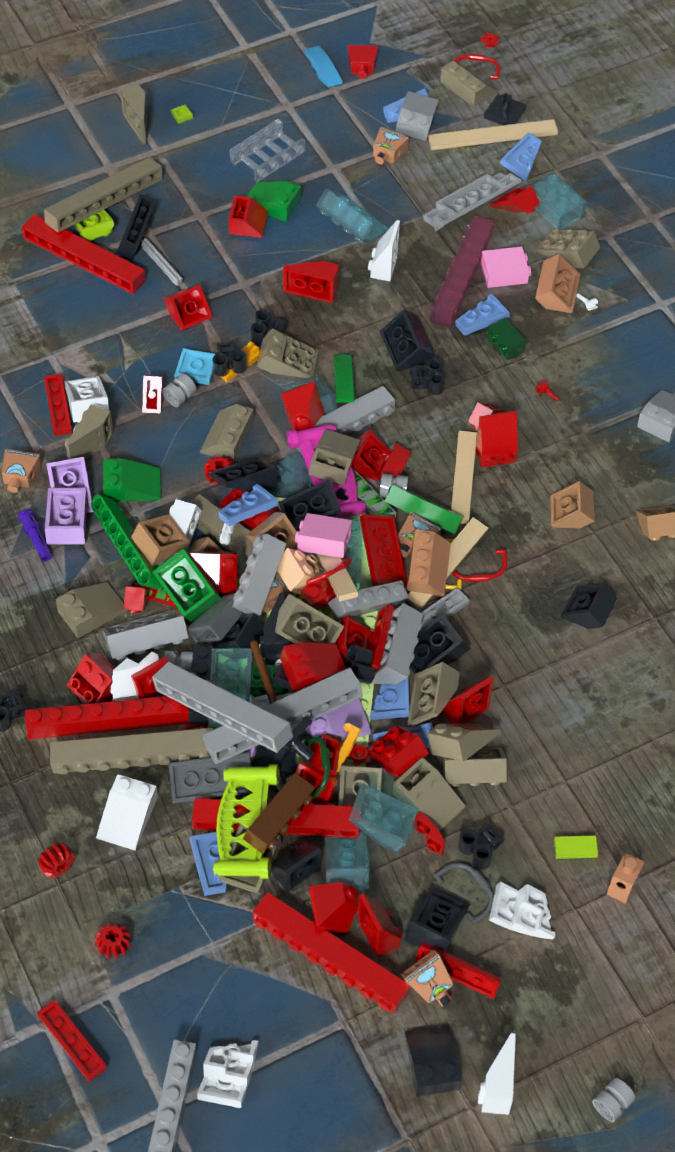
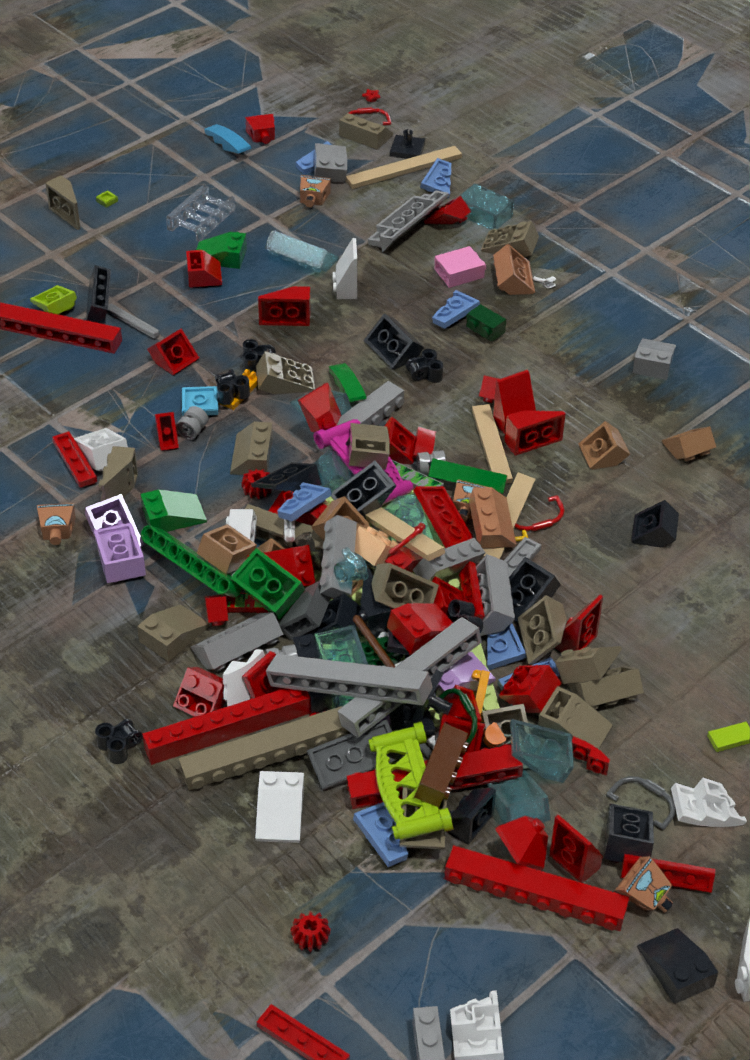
camera: 15 degrees left, 10 degrees down
(32, 528) = (87, 572): dark purple pin -> none
(56, 860) = (224, 867): red gear -> none
(103, 194) = (56, 273): dark tan brick -> none
(264, 591) = (351, 568): none -> clear light blue piece
(324, 535) = (388, 509): bright pink brick -> none
(342, 793) = (493, 736): none -> orange brick
(359, 749) = (495, 697): red plate -> none
(462, 271) = (421, 278): clear pink brick -> none
(483, 844) = (640, 754): black piece -> none
(506, 473) = (533, 430): none -> red slope
(544, 387) = (535, 356): red hand -> none

